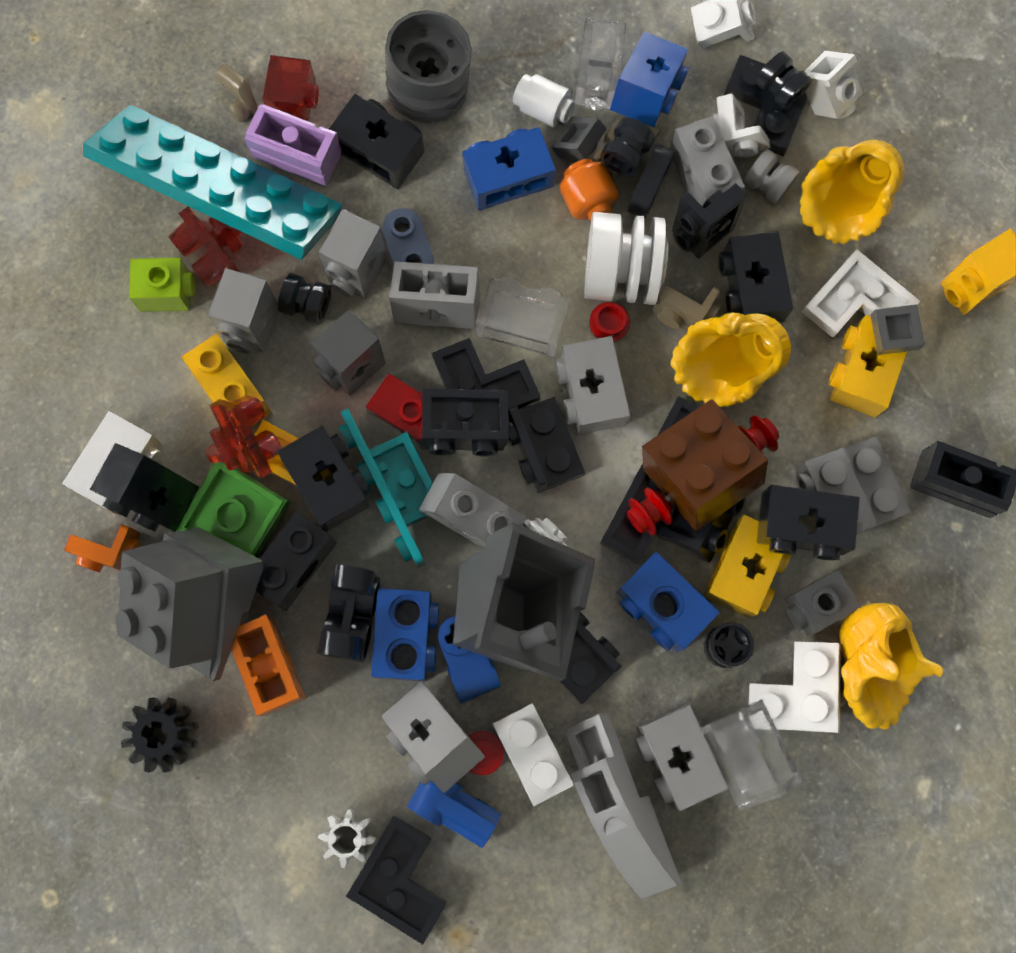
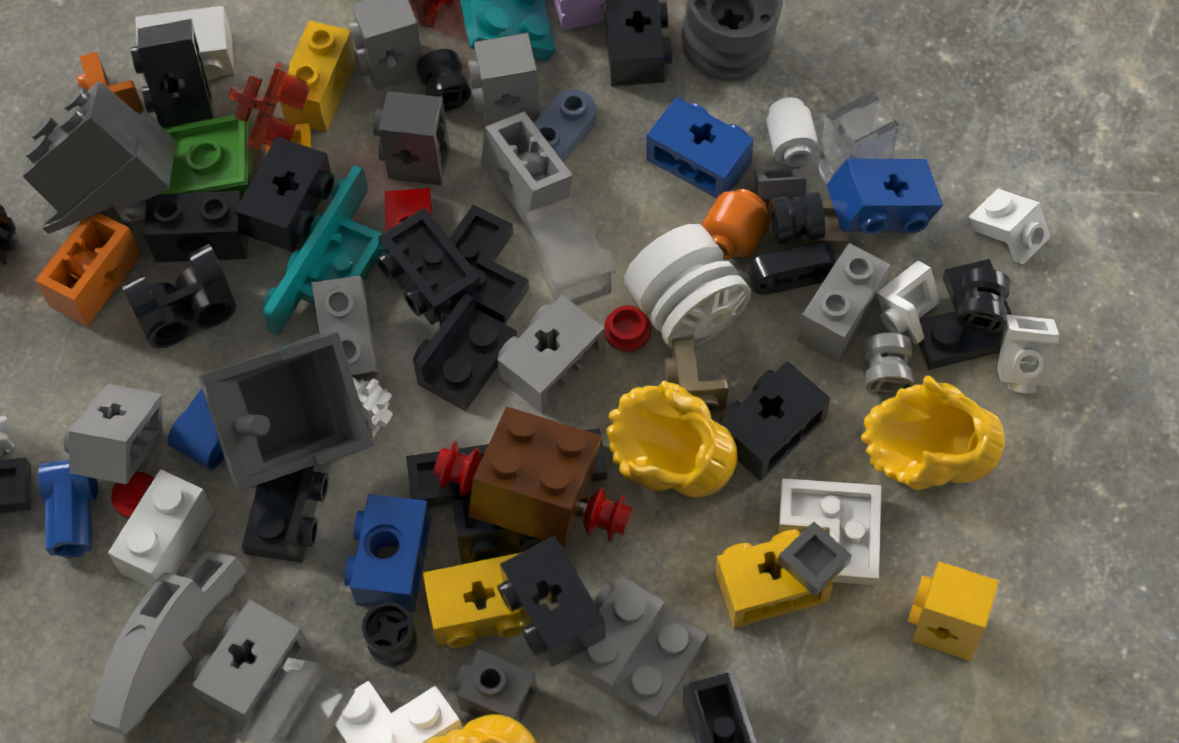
camera: 60 degrees right, 15 degrees down
(391, 635) = (190, 348): blue brick -> none
(703, 227) = (787, 333): black bracket -> none

